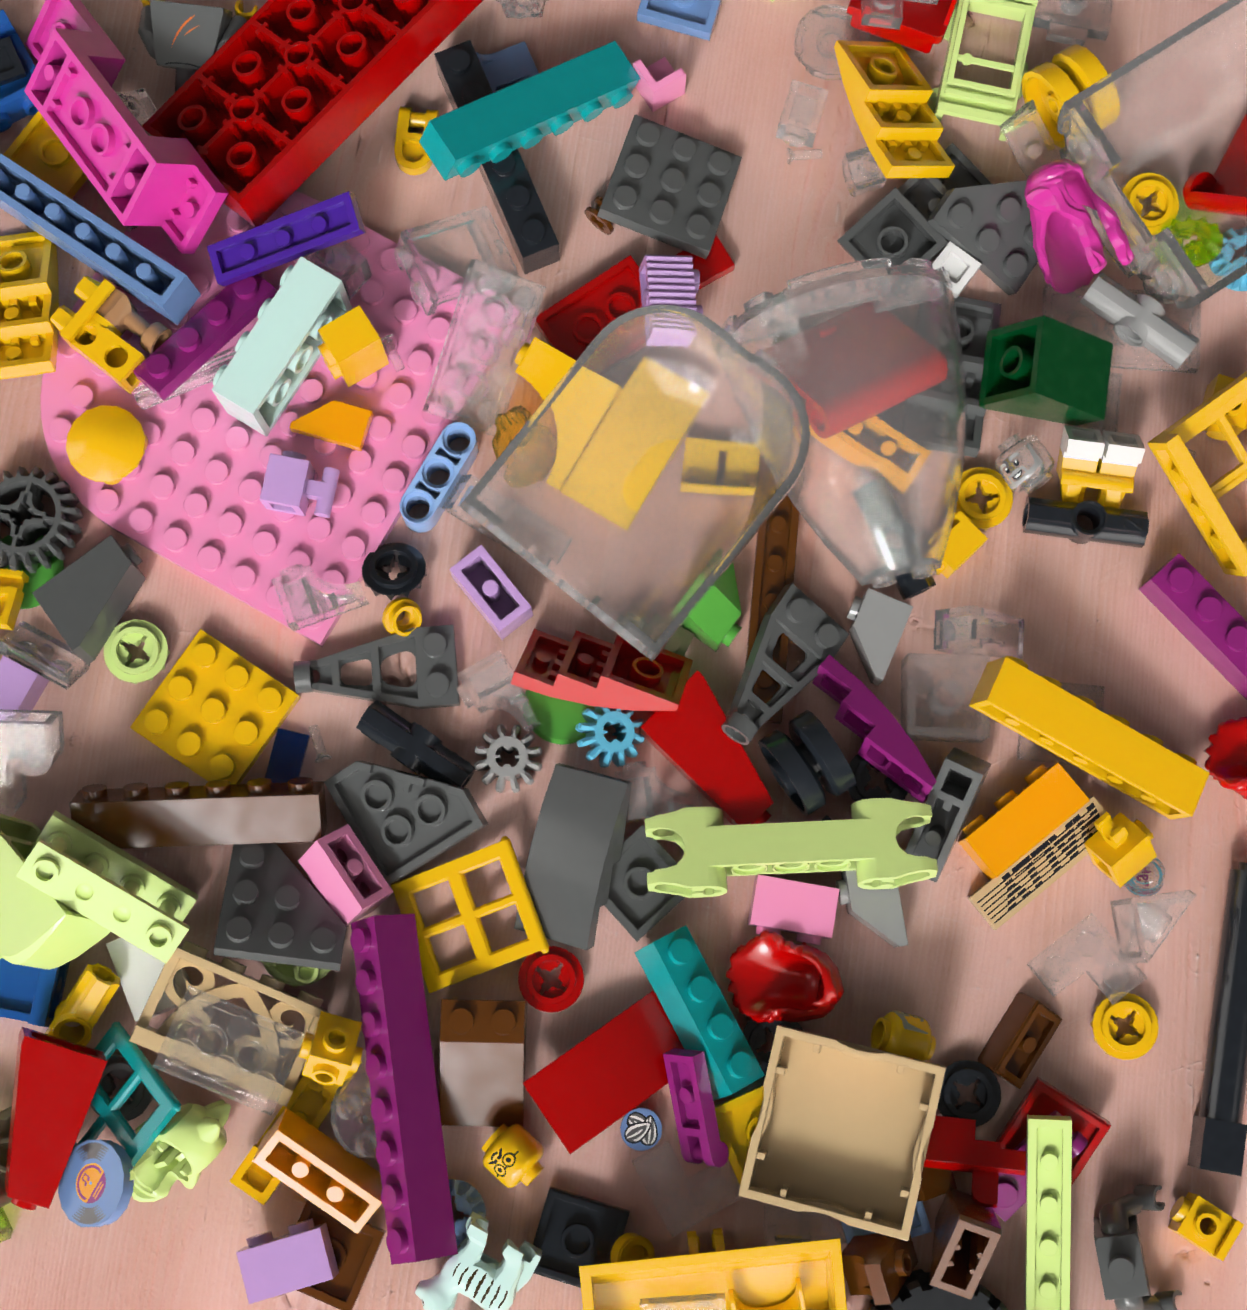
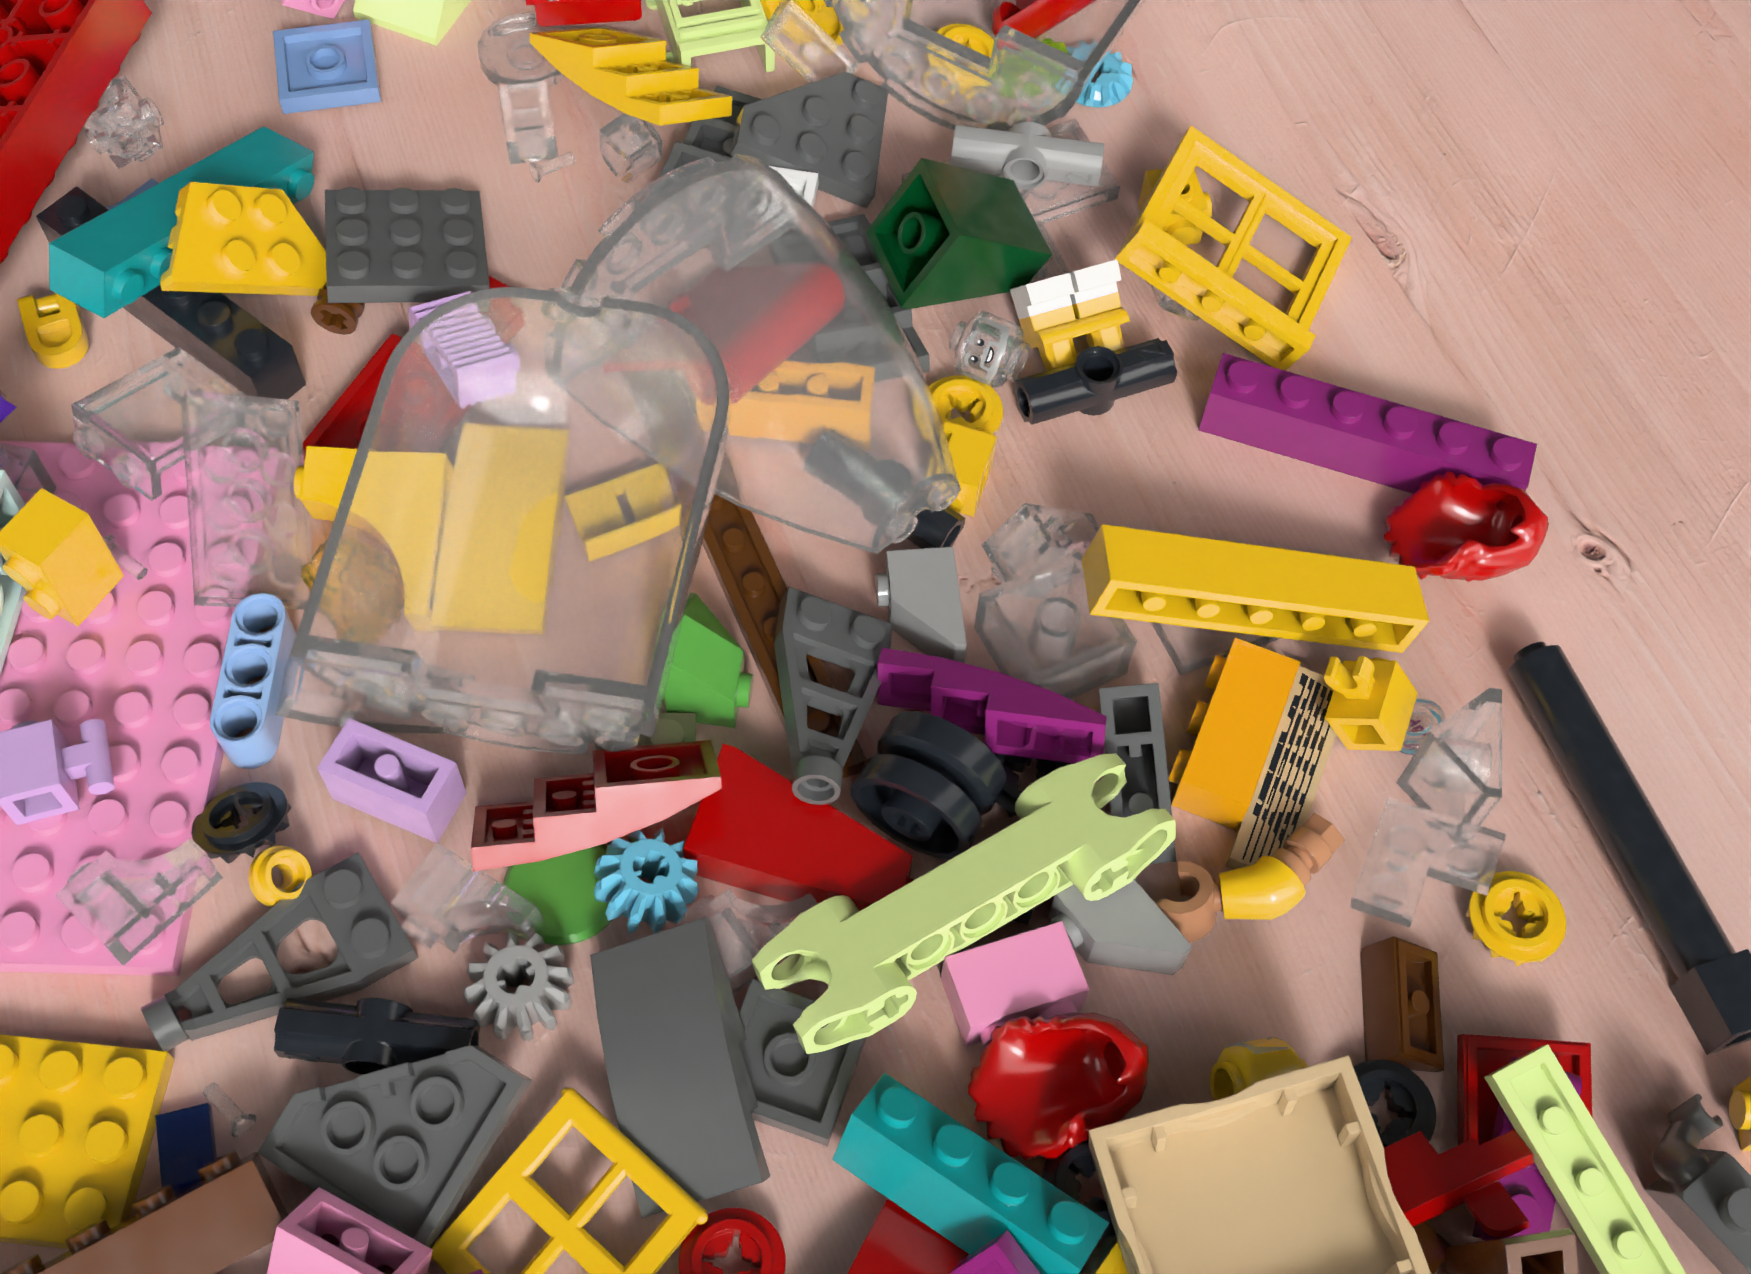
camera: 30 degrees left, 20 degrees down
(336, 424) = (75, 674): light orange tile -> none
(558, 151) = (242, 243): none -> yellow wing
(659, 83) = (341, 159): bright pink panel -> none
(974, 930) = (1254, 891): none -> piece
(1063, 229) = (862, 73): dark pink hair -> none

